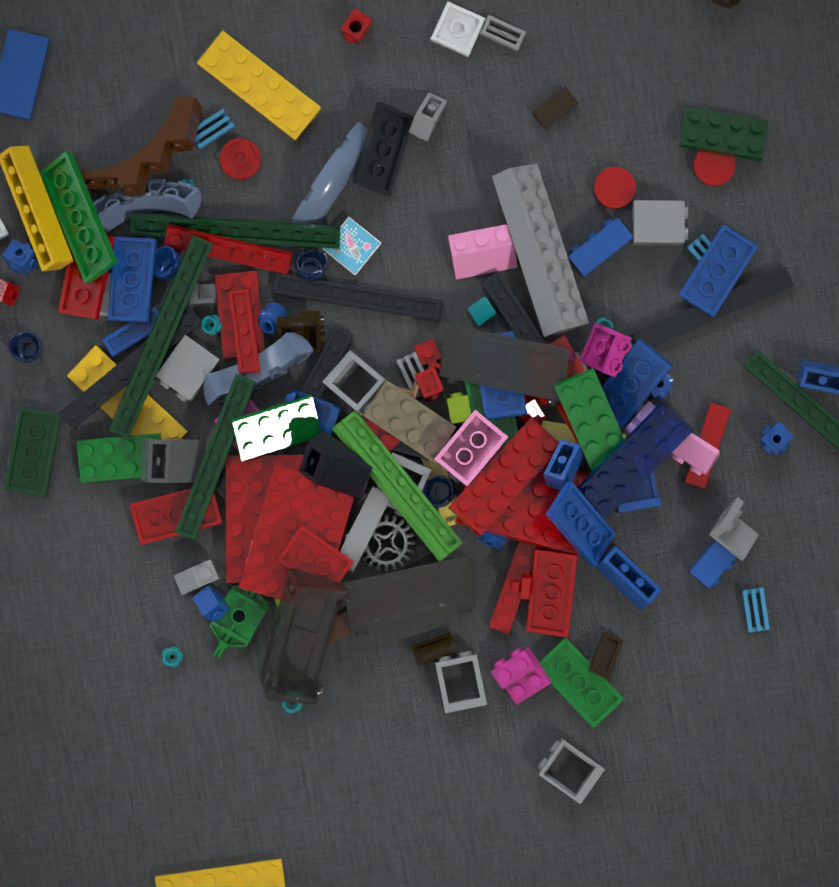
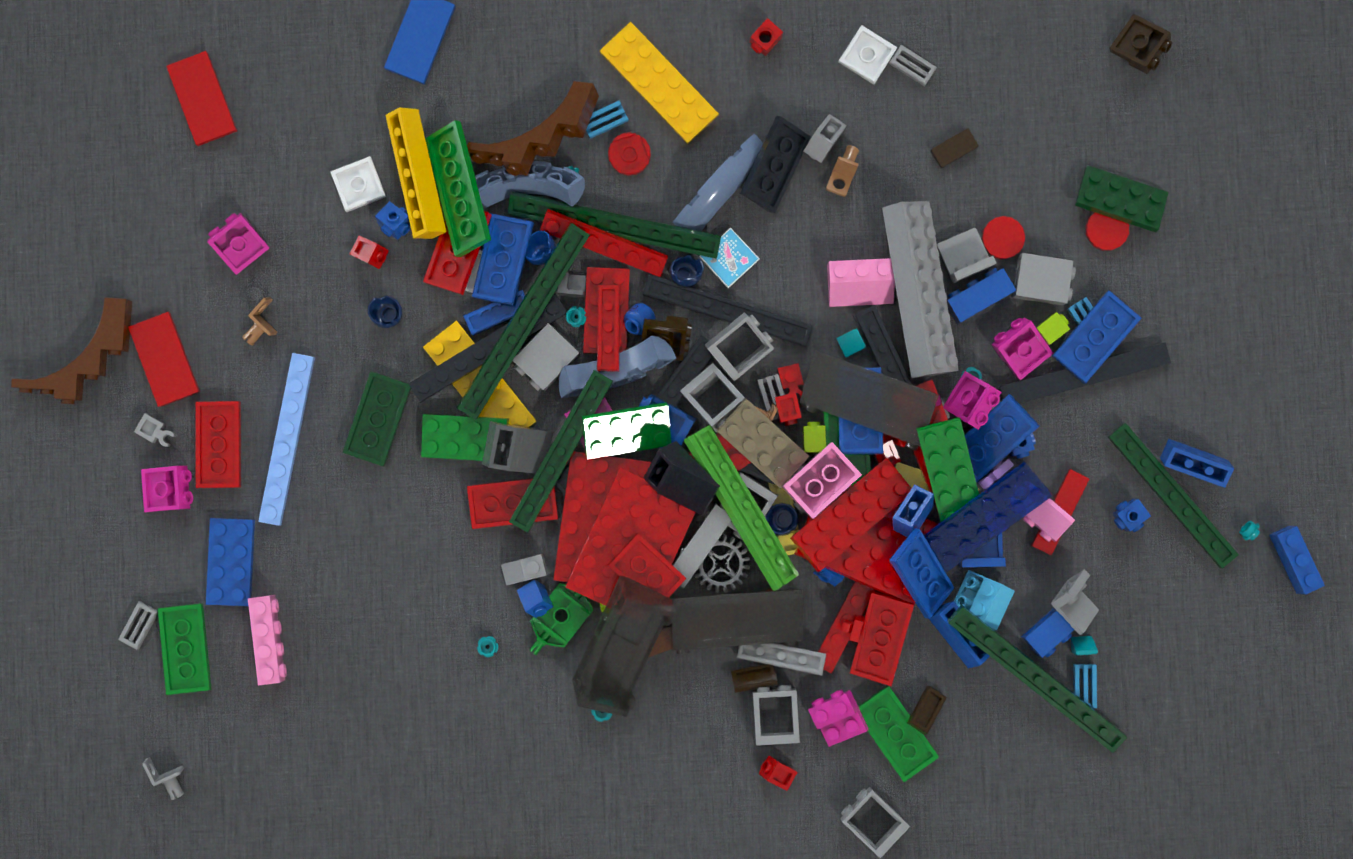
camera: 15 degrees right, 0 degrees up
(374, 356) = (753, 358): none -> light grey window
(450, 144) = (844, 170): none -> medium nougat bracket
(460, 624) = (784, 657): none -> light grey tile
(470, 737) = (777, 773): none -> red bracket
(579, 210) = (965, 255): none -> light grey bracket
(645, 540) = (984, 598): none -> medium azure slope
(647, 292) = (1021, 347): none -> dark pink plate
(674, 269) = (1053, 327): none -> lime brick
(706, 609) = (1037, 678): none -> dark green plate
(748, 571) = (1083, 645): none -> teal slope

